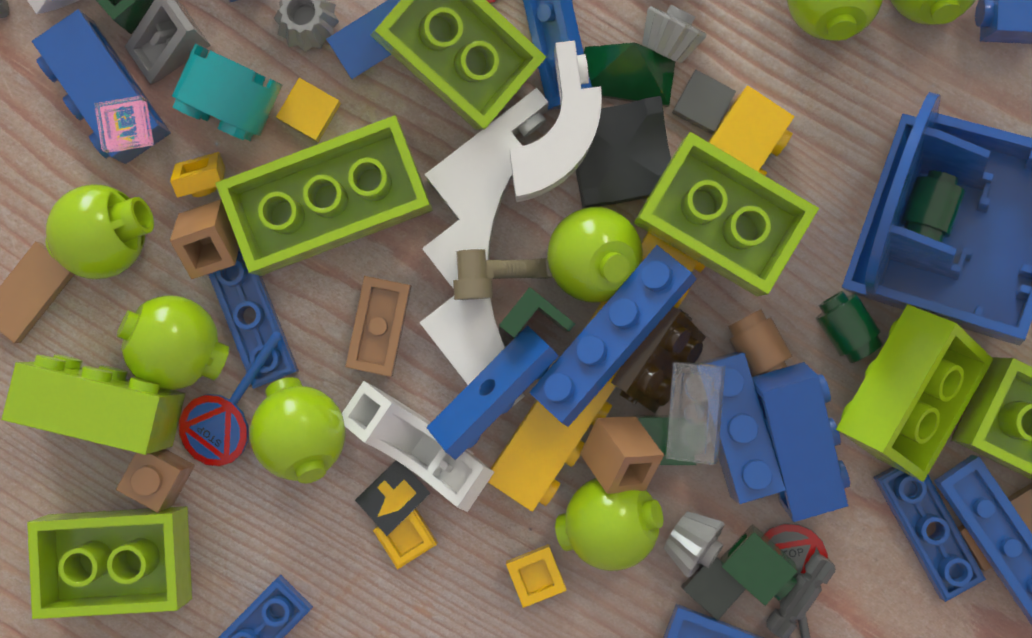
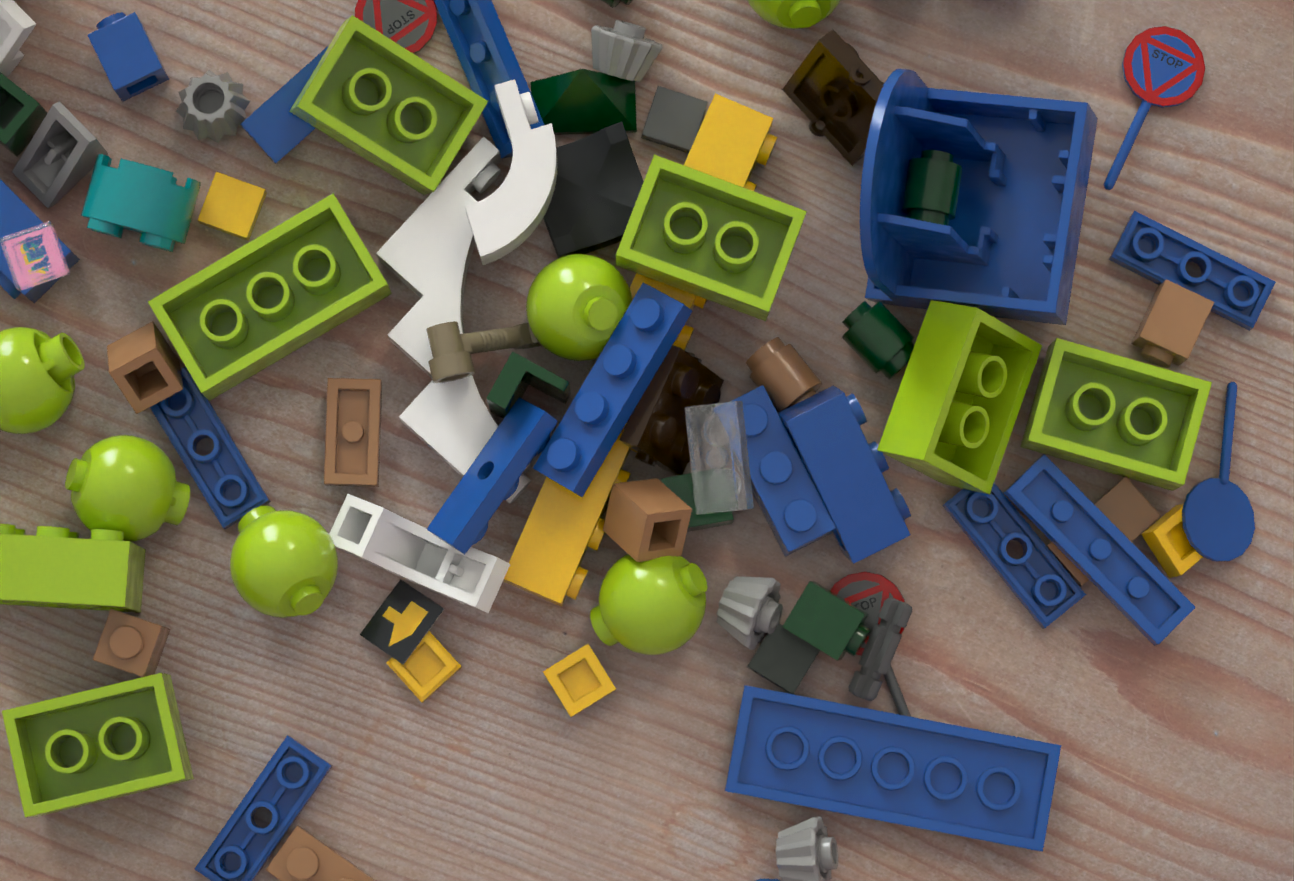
camera: 15 degrees left, 5 degrees down
(198, 175) = (122, 300): yellow plate -> none
(214, 426) = (186, 577): piece -> none
(860, 108) = (839, 91): none -> dark brown plate

